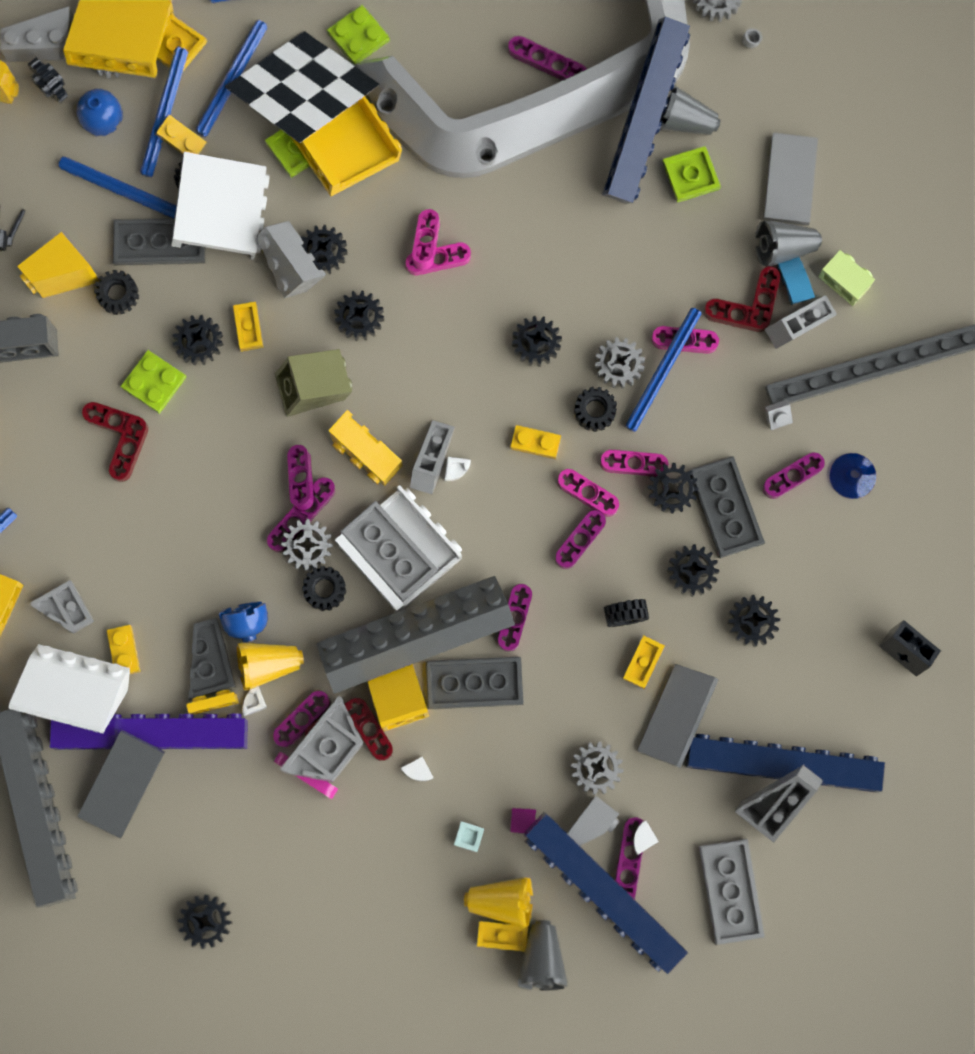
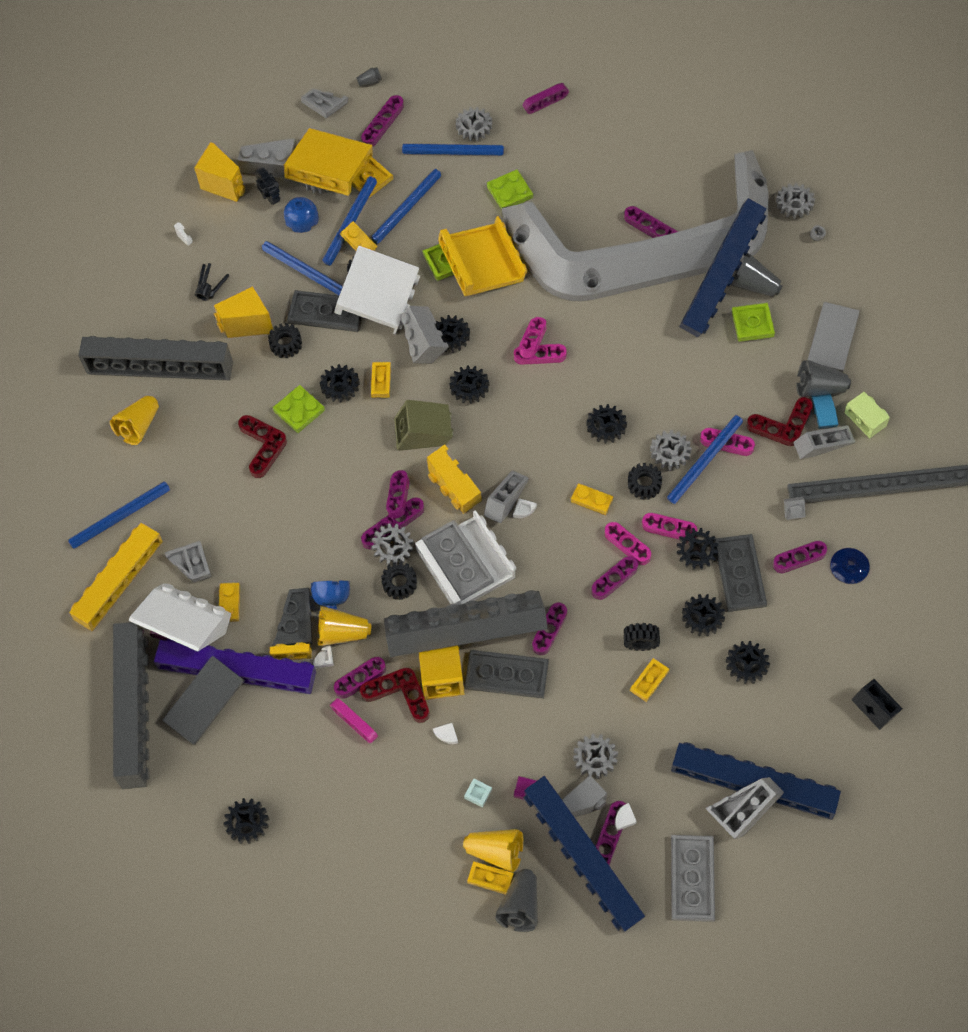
camera: 15 degrees right, 15 degrees down
(302, 86) = (458, 215): sticker -> none
(326, 747) = (375, 698): light grey wing -> none
(678, 715) = (670, 725): dark grey tile -> none

